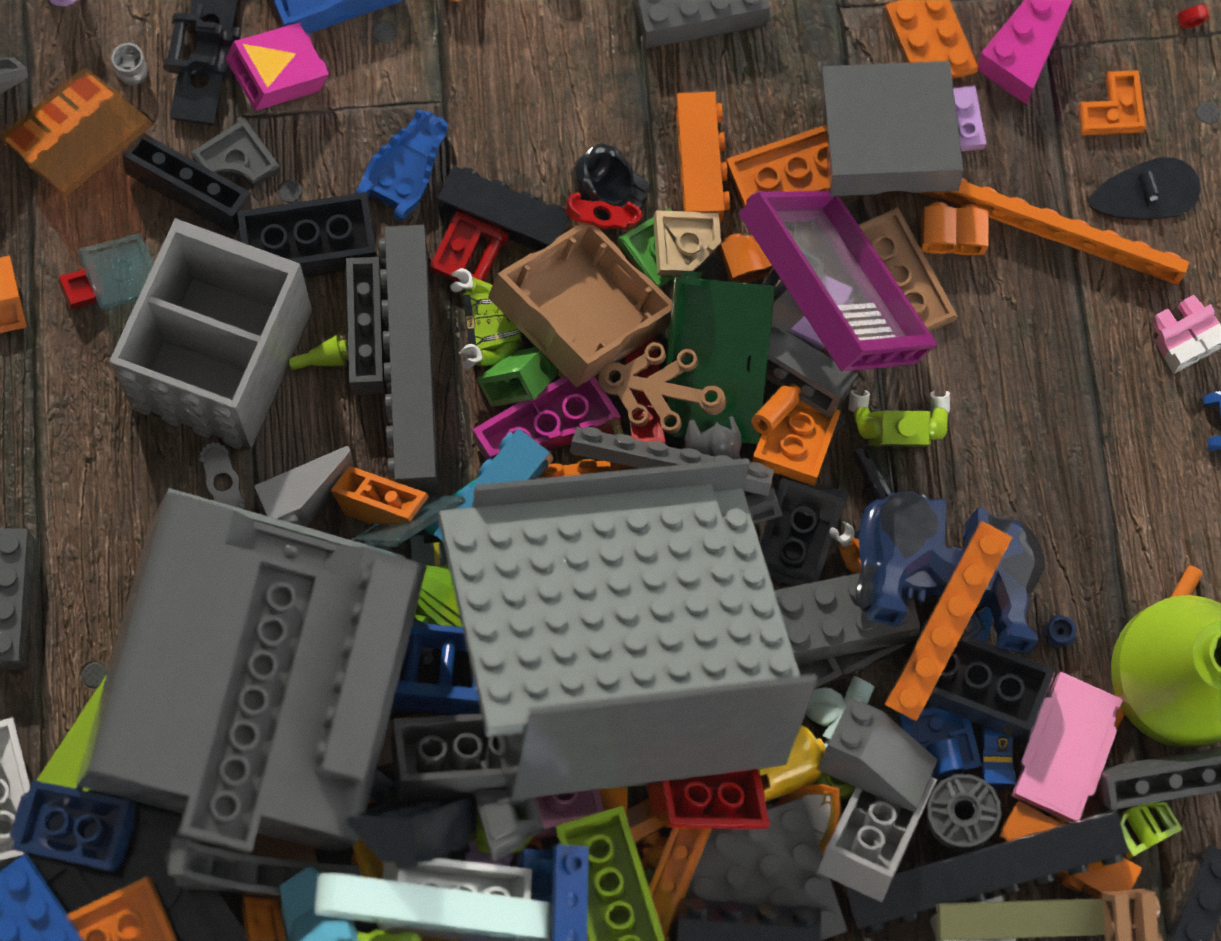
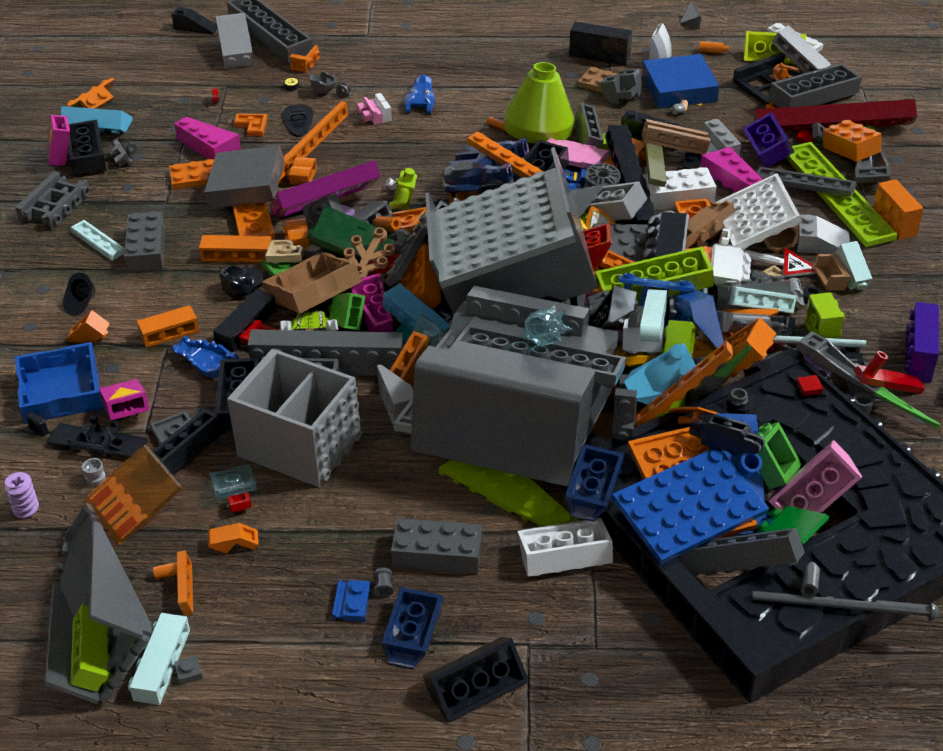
camera: 80 degrees left, 30 degrees down
(217, 462) = (391, 444): light grey piece -> none
(288, 705) = (545, 326): none -> clear light blue hair
(478, 91) = (168, 326): none -> orange brick
(620, 217) = (262, 274): red piece -> none

